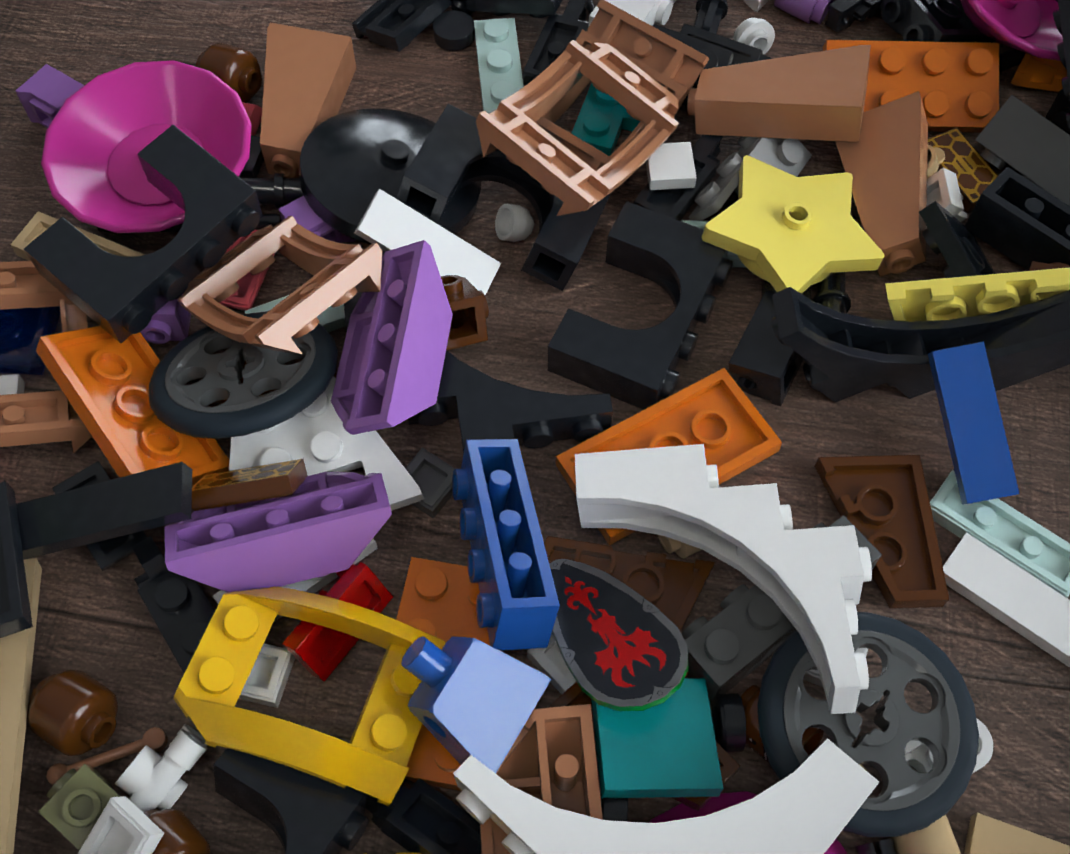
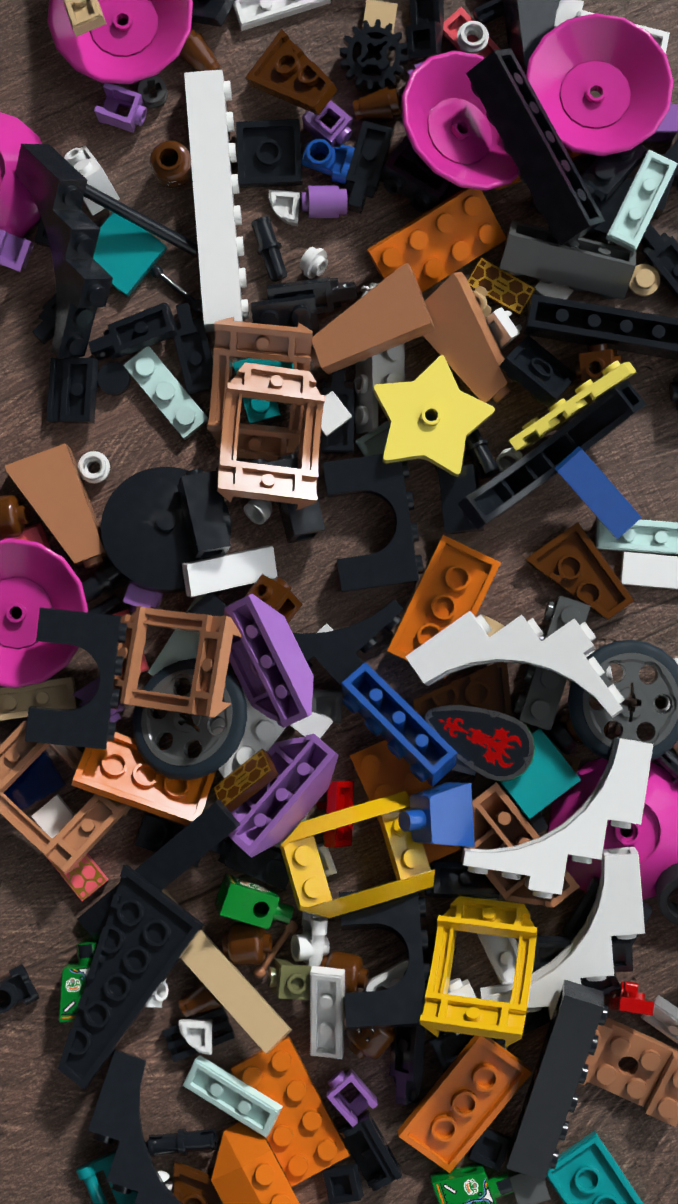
camera: 30 degrees left, 25 degrees up
(112, 639) = (239, 897): none -> green torso
(364, 88) = (89, 458): none -> white plate

